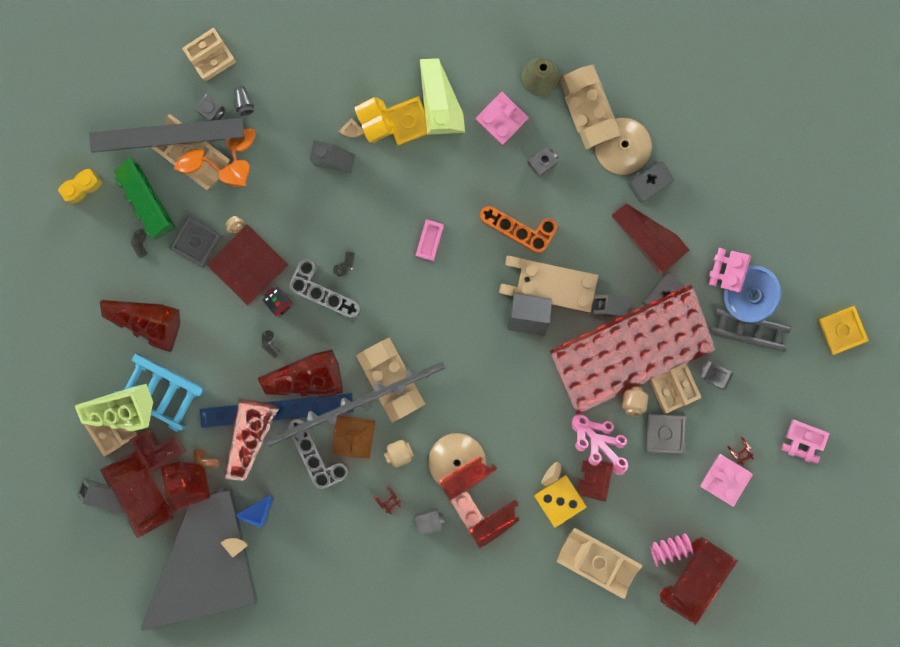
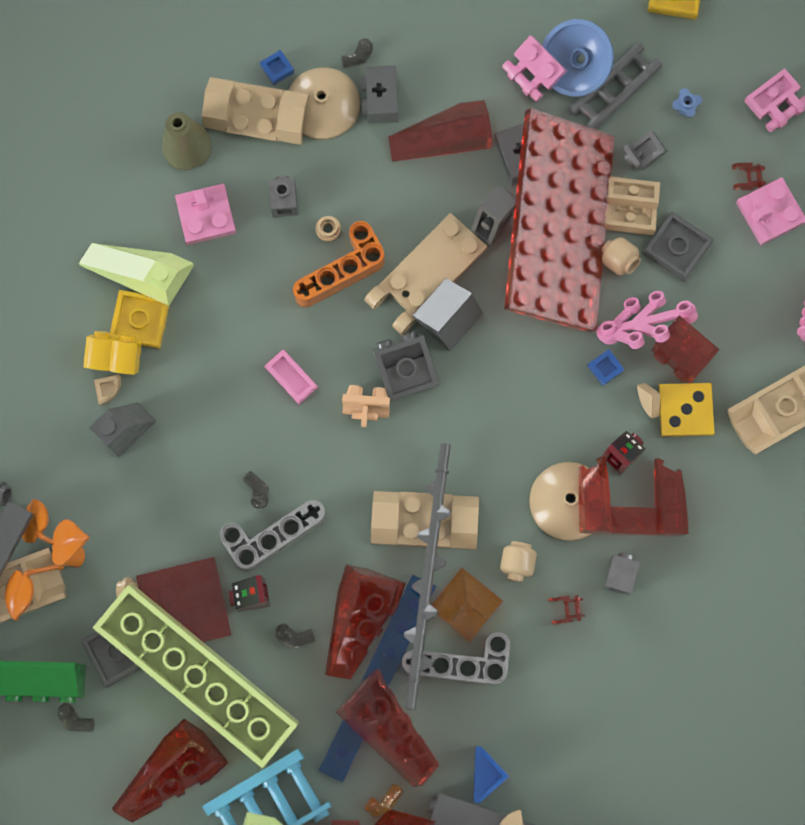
camera: 55 degrees left, 10 degrees down
(208, 301) = (196, 675): none -> yellowish green brick
(437, 300) = (366, 407): none -> light nougat hips
(479, 308) = (405, 365): none -> dark grey plate
(508, 479) = (624, 451): none -> slope
(544, 198) = (328, 221): none -> tan plate
(556, 435) = (605, 367): none -> blue plate
(628, 101) = (277, 67): none -> blue plate
(670, 151) = (360, 55): none -> clear smoke arm
(772, 383) = (684, 109): none -> medium blue plate

